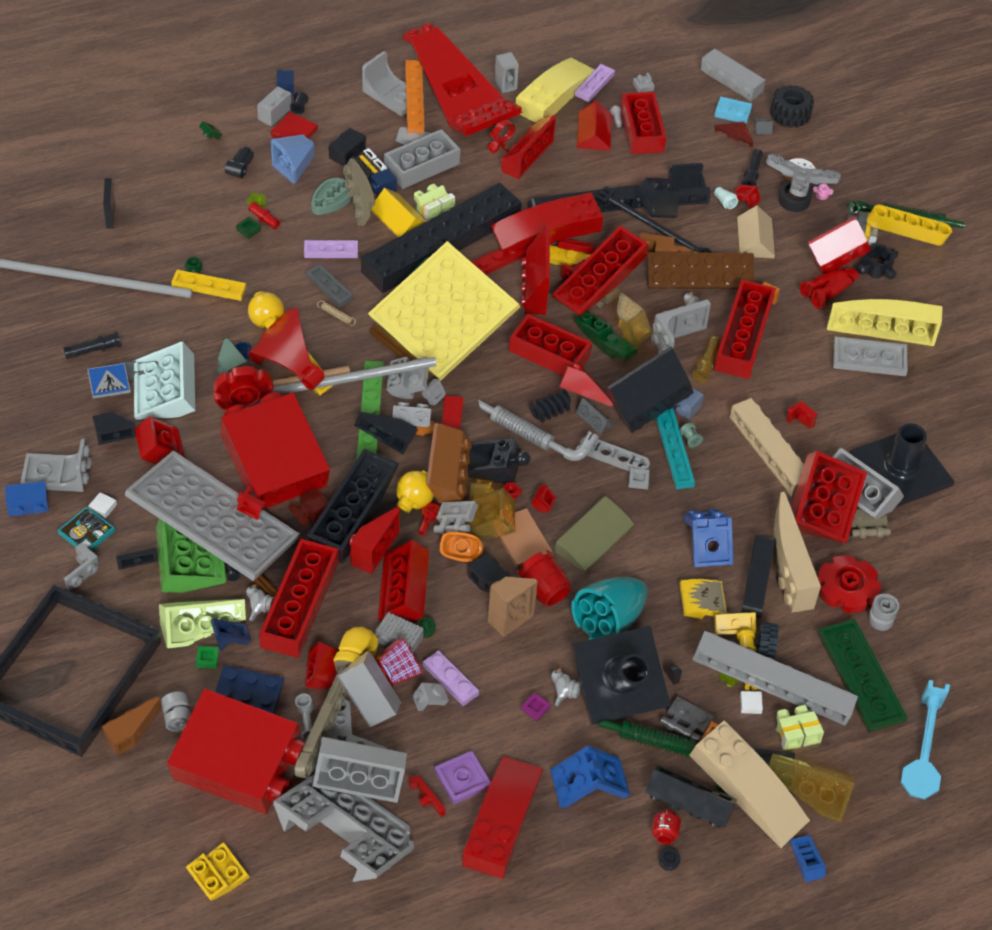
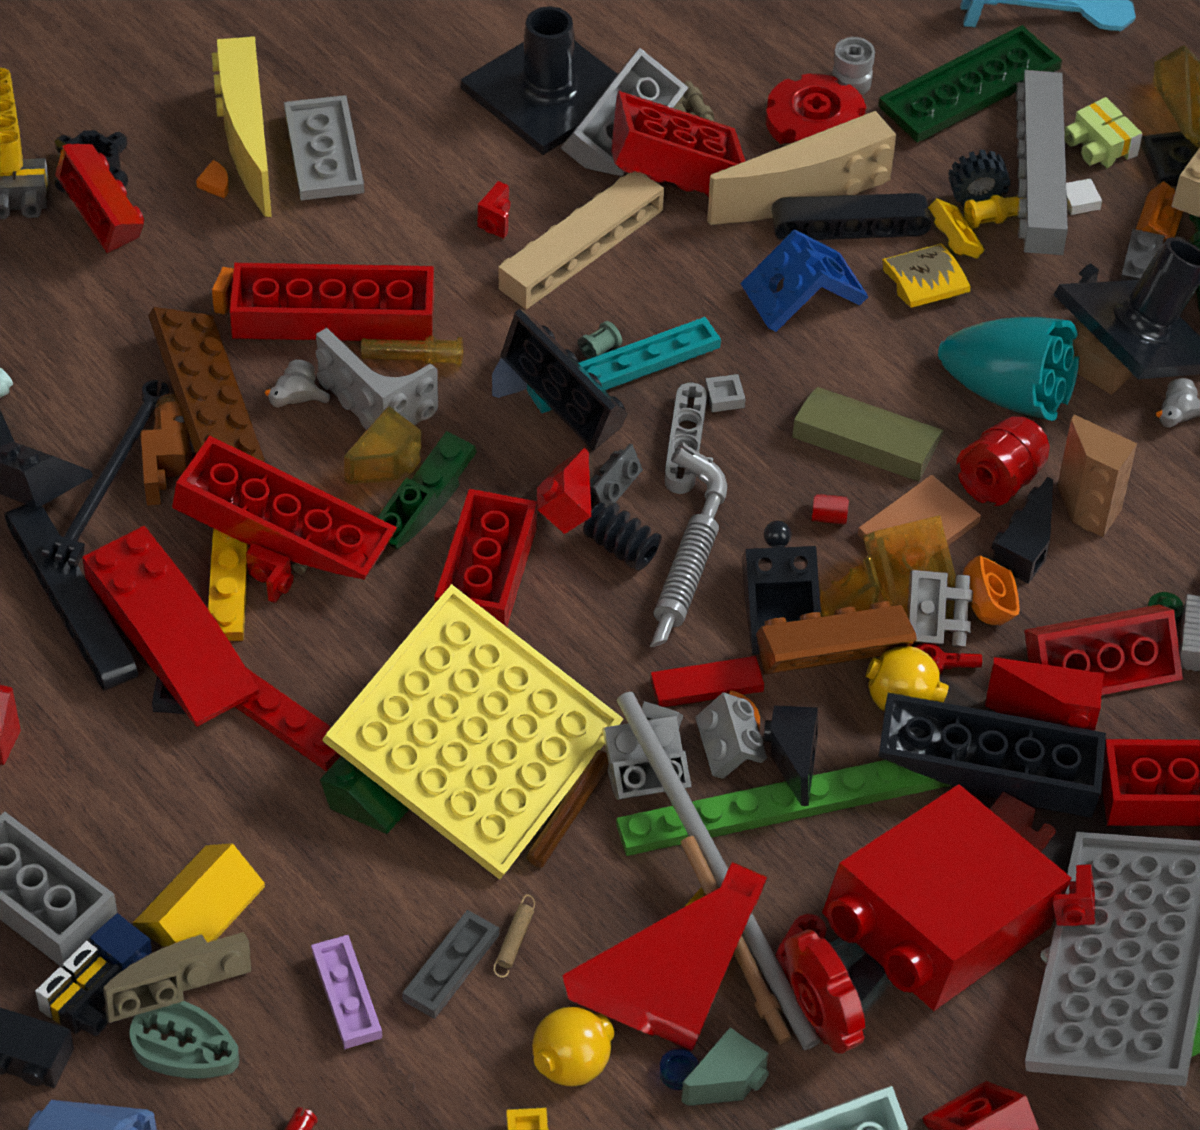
camera: 105 degrees left, 0 degrees up
(434, 201) = (151, 841): yellowish green hips -> none
(458, 226) = (253, 803): black brick -> none
(514, 489) = (833, 558): red plate -> none
(536, 274) = (316, 604): red slope -> none
(575, 245) = (200, 574): red tile -> none
(756, 233) = (73, 339): tan slope -> none
(828, 285) = (179, 217): red piece -> none

